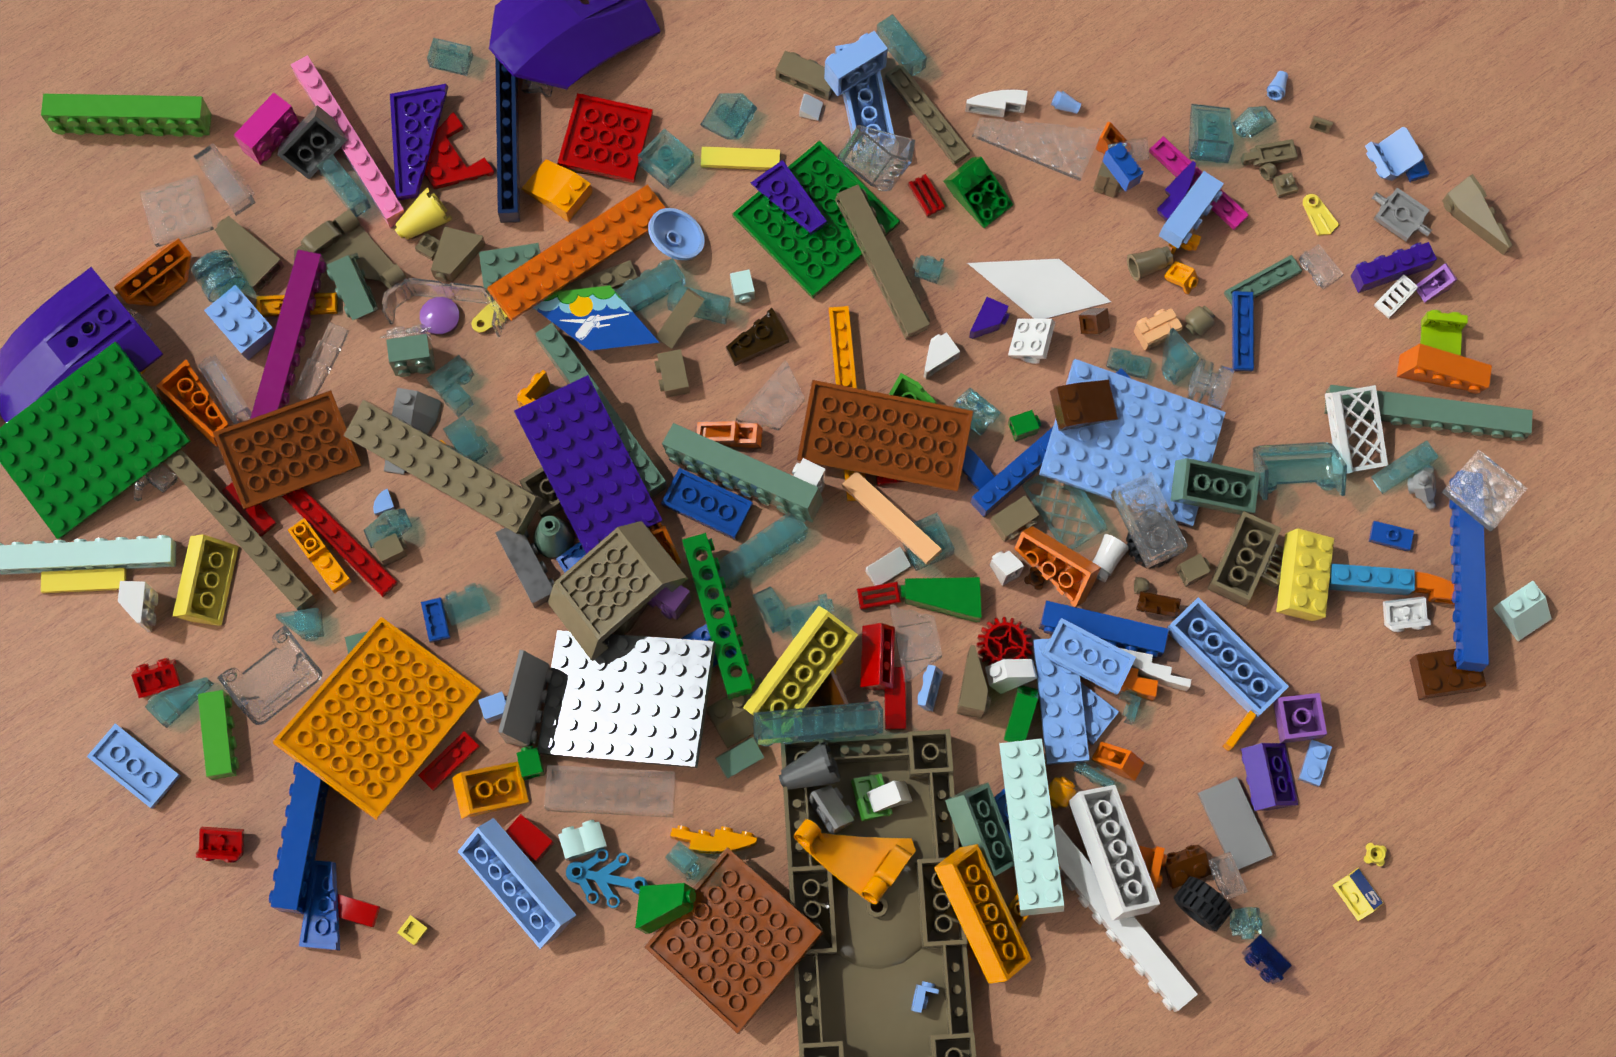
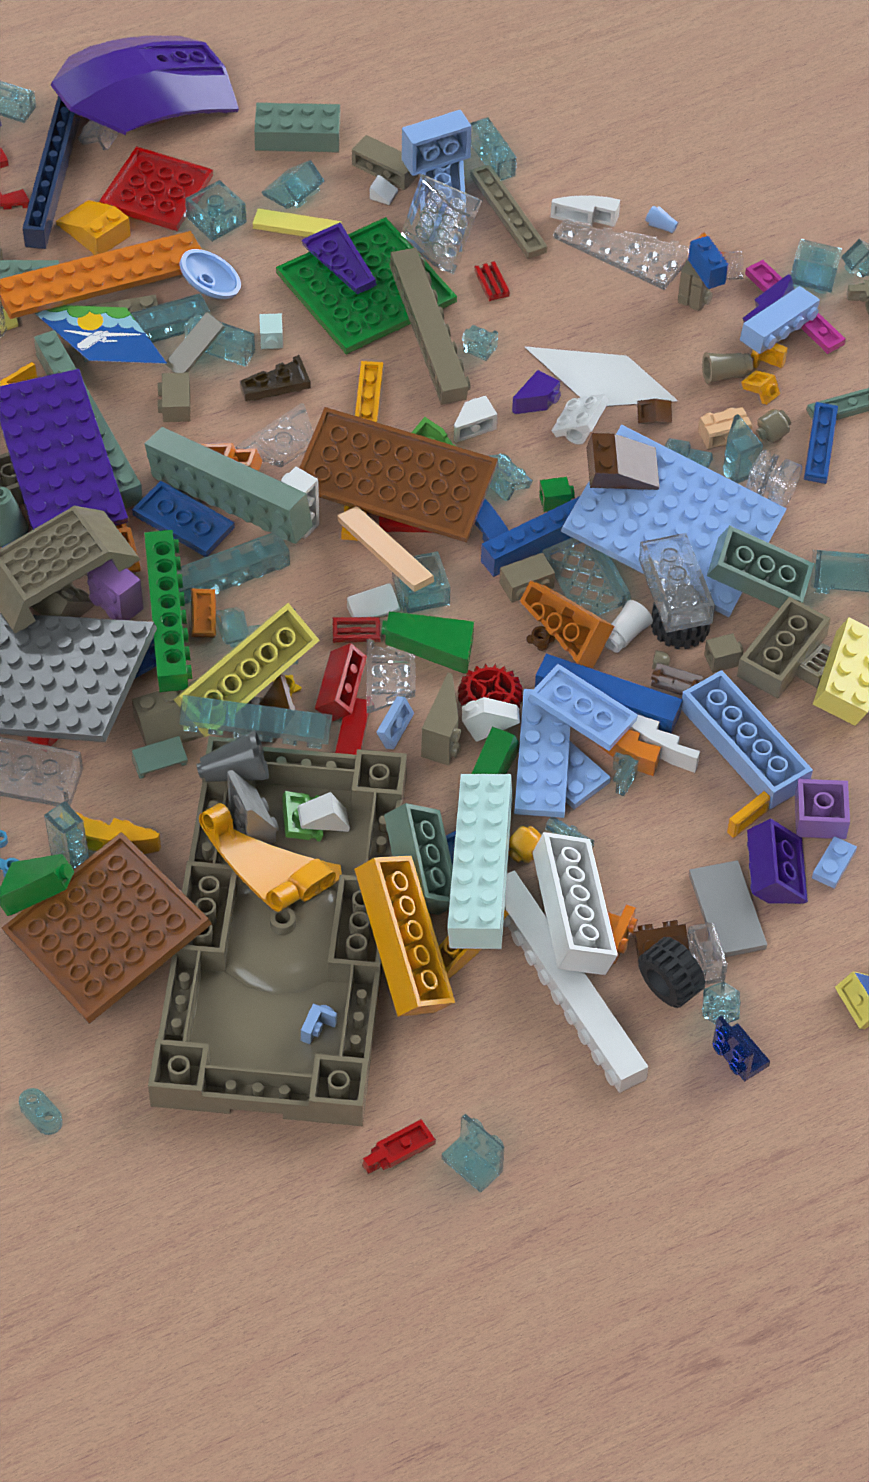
camera: 10 degrees right, 20 degrees down
(720, 47) = (297, 127): none -> sand green brick
(745, 602) = (203, 613): none -> orange plate
(978, 191) = (549, 281): green slope -> none
(1006, 566) = (508, 620): white slope -> none
(1118, 760) = (601, 823): orange slope -> none

